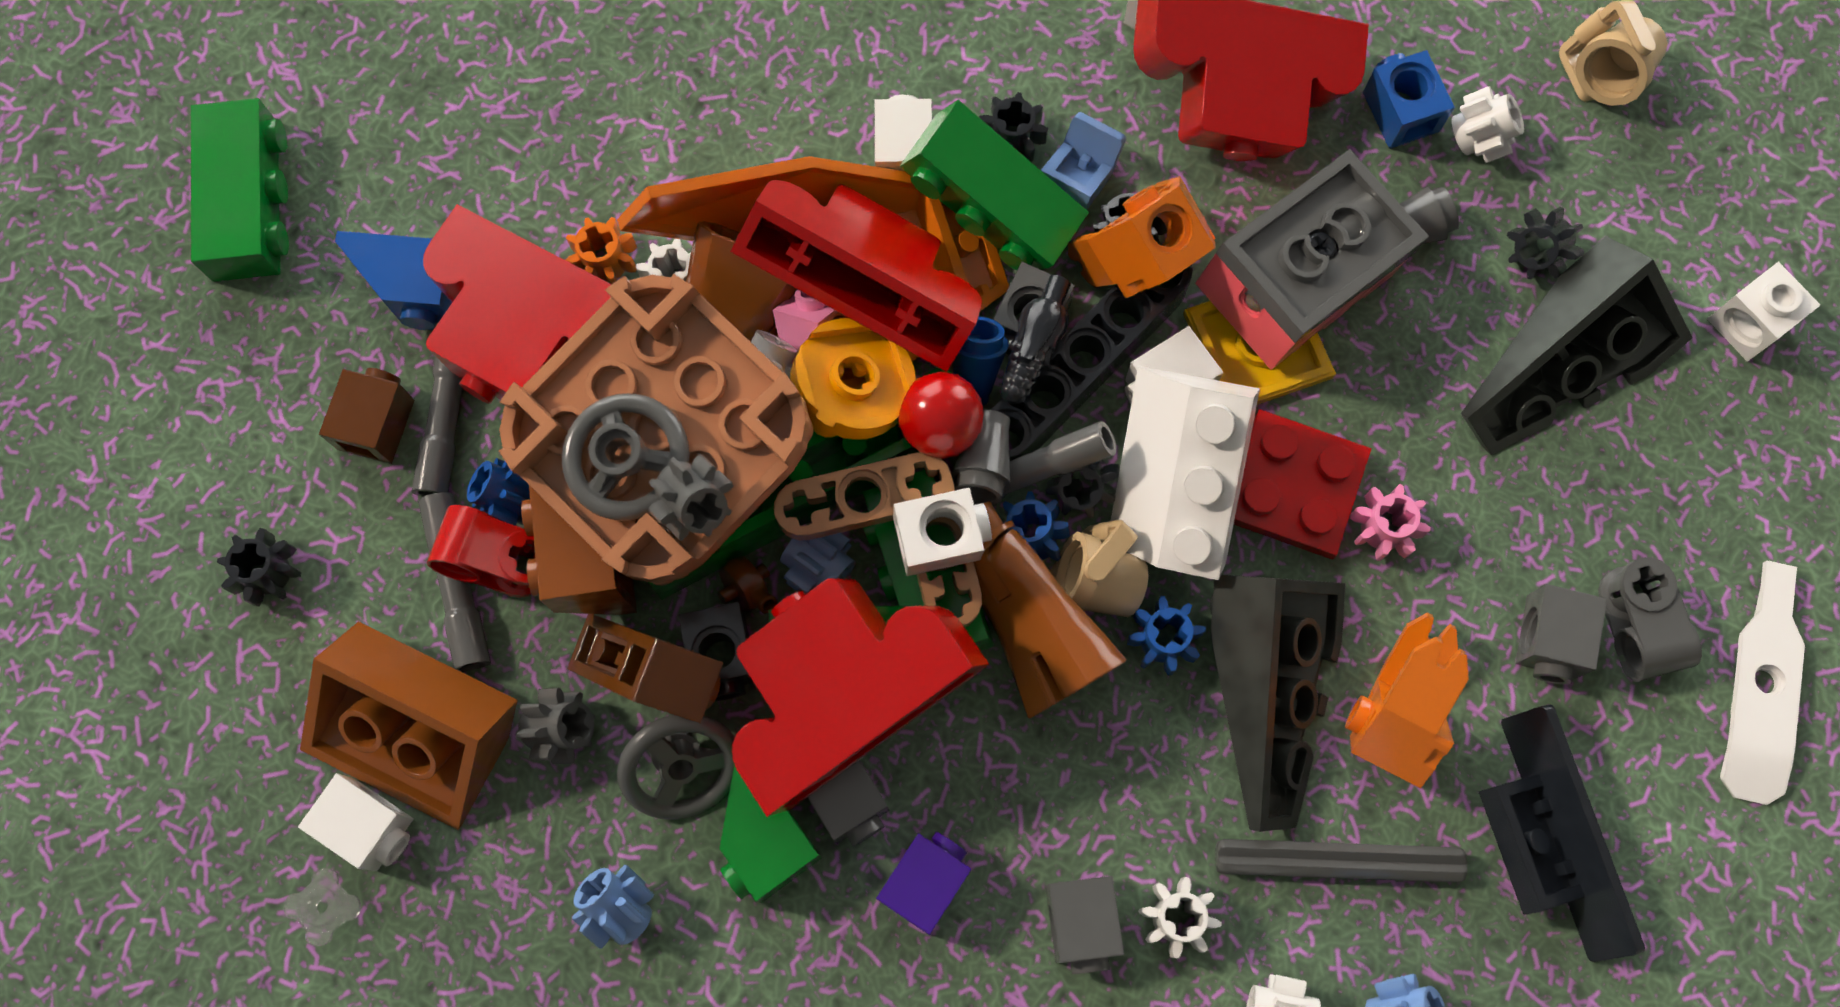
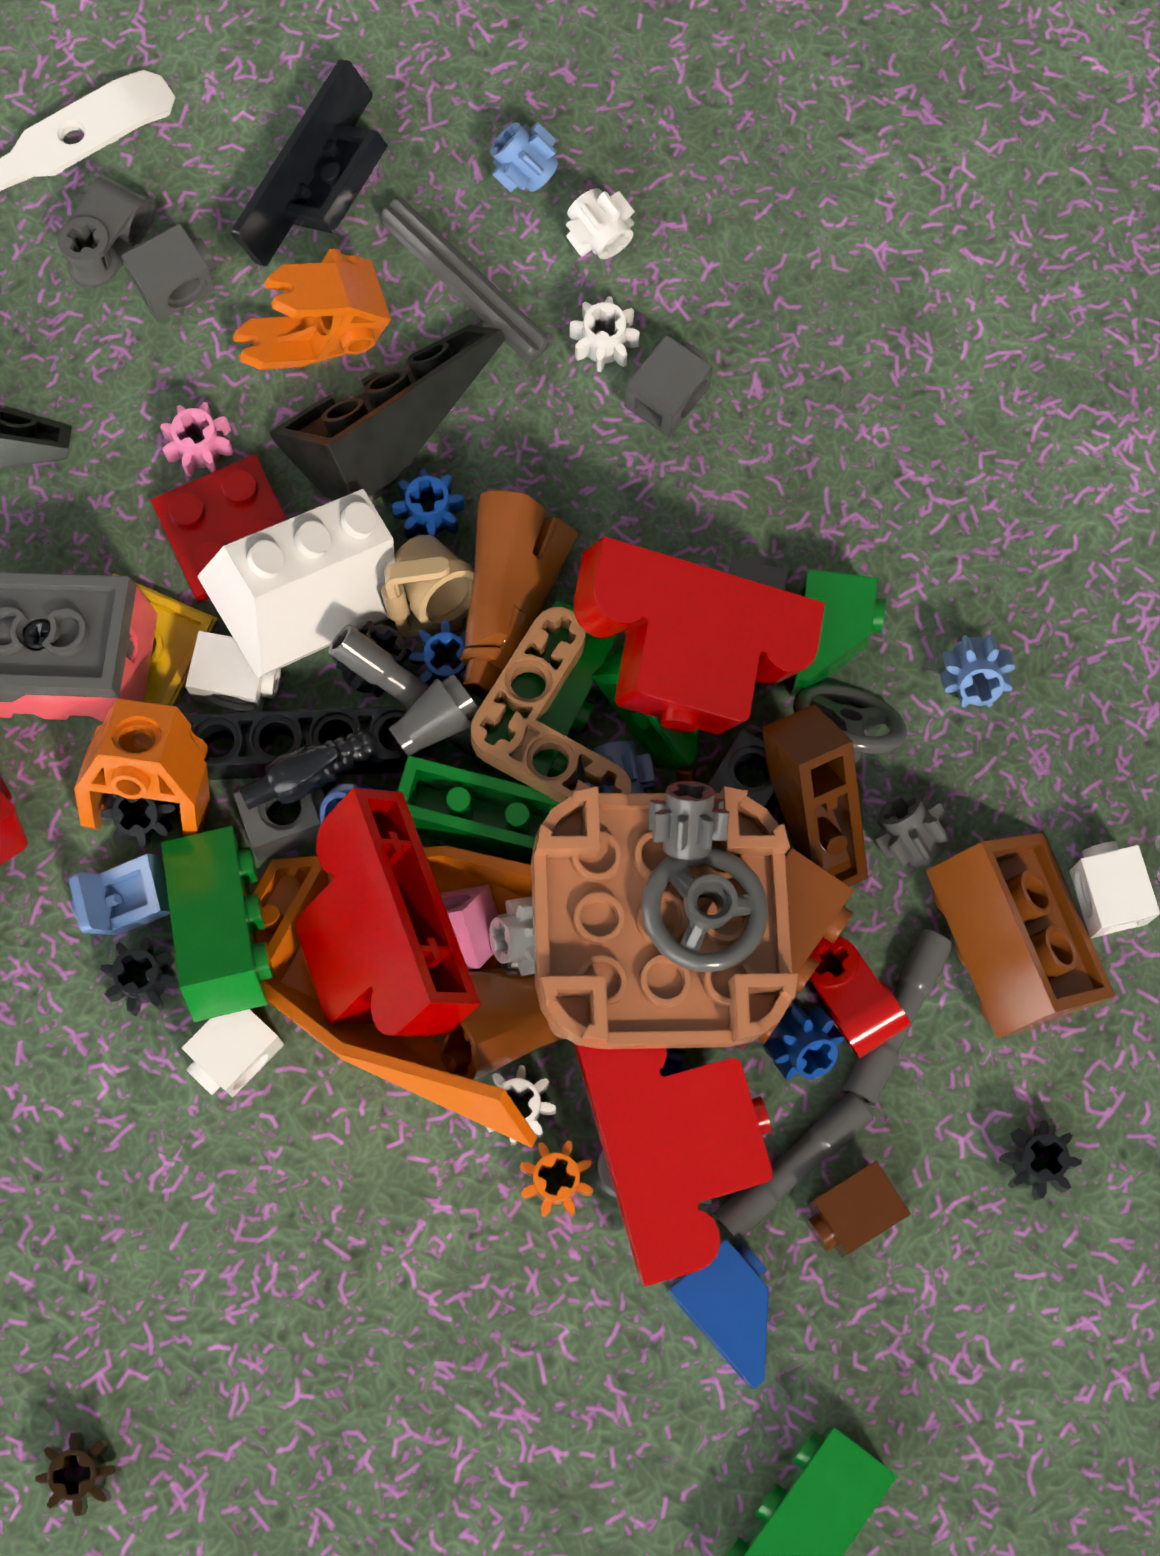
camera: 140 degrees left, 0 degrees up
(845, 410) = (504, 865): light orange plate -> none
(924, 555) = (532, 693): white brick -> none
(925, 881) = (750, 499): dark purple brick -> none
(941, 415) = (440, 755): red piece -> none

